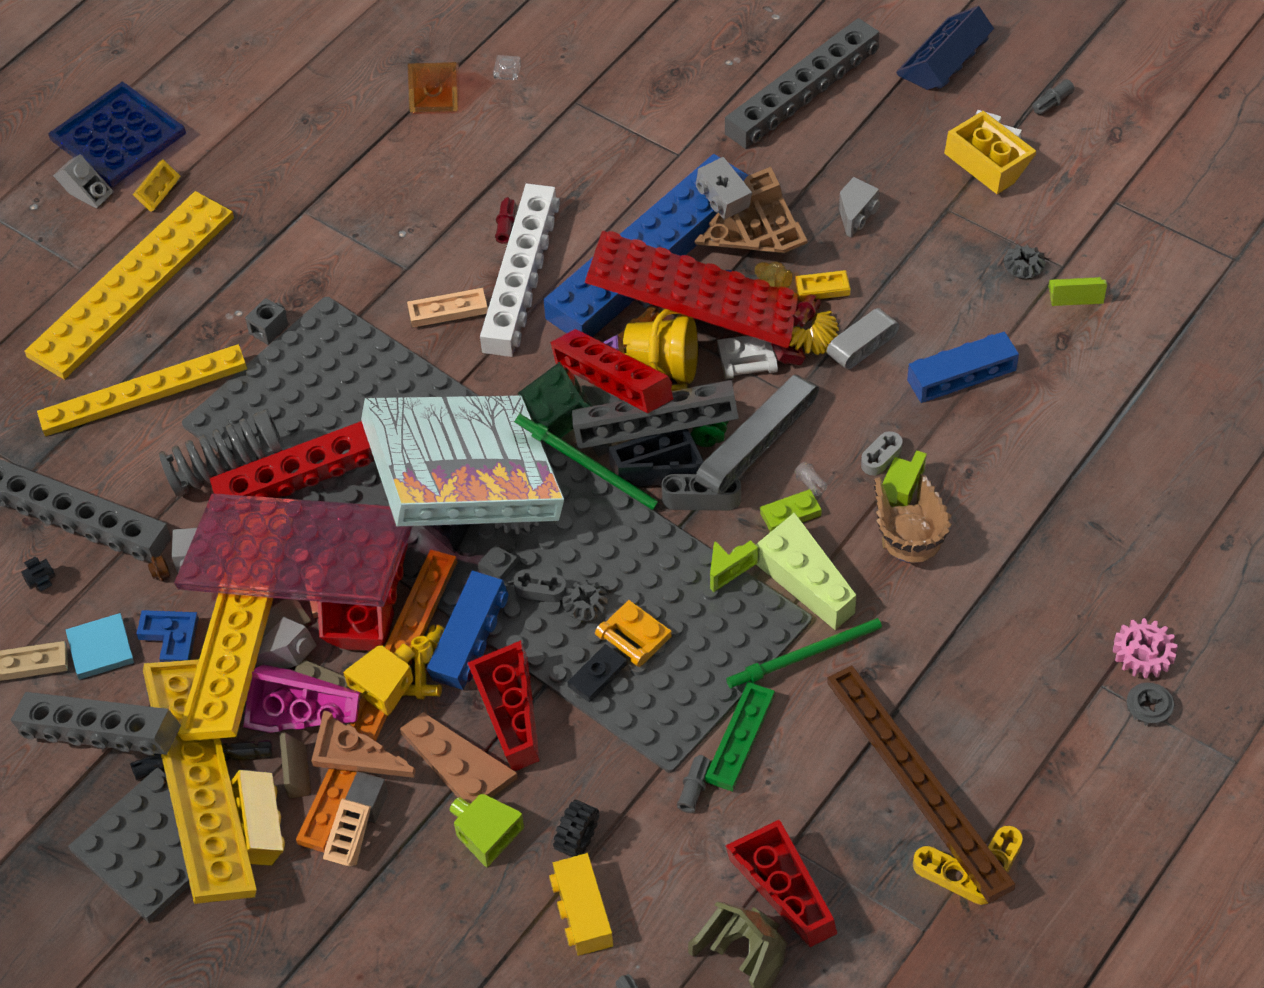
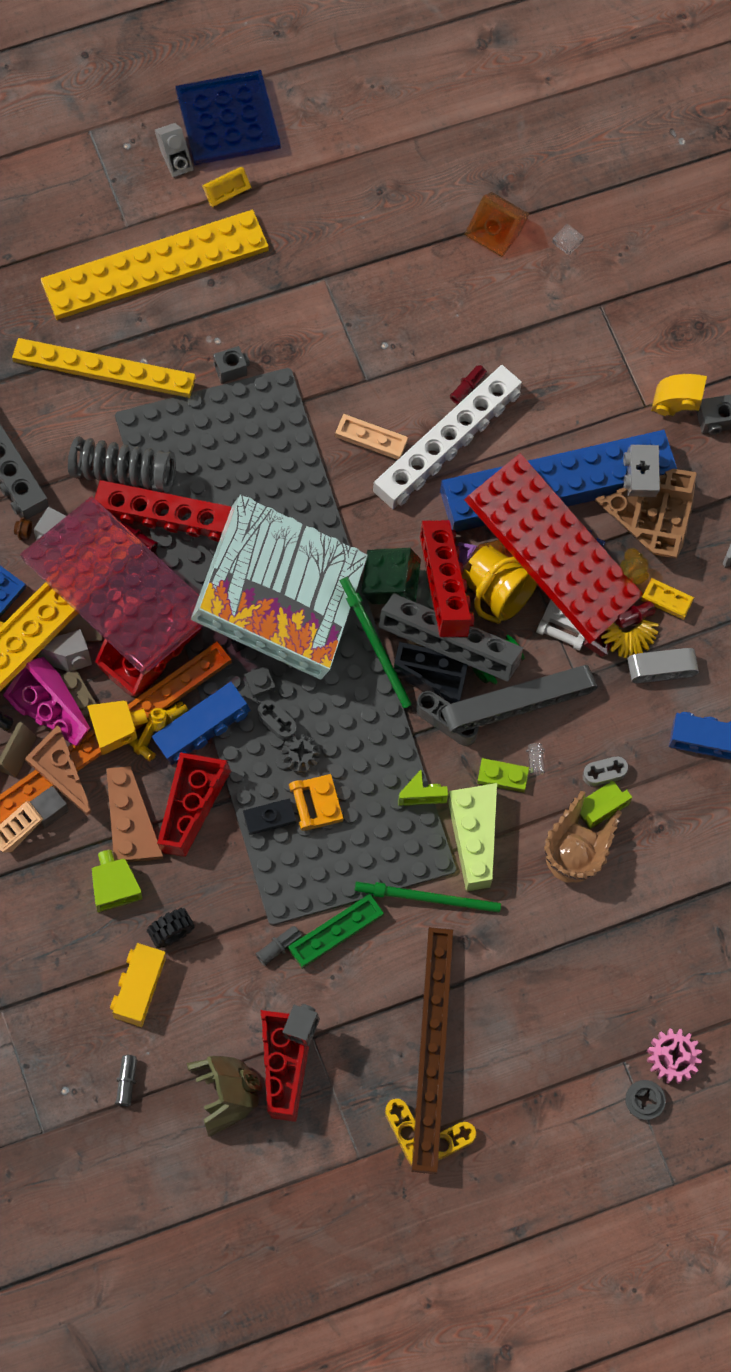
camera: 25 degrees right, 15 degrees up
(703, 122) = (678, 394): none -> yellow brick
(779, 827) = (301, 1024): none -> dark grey brick

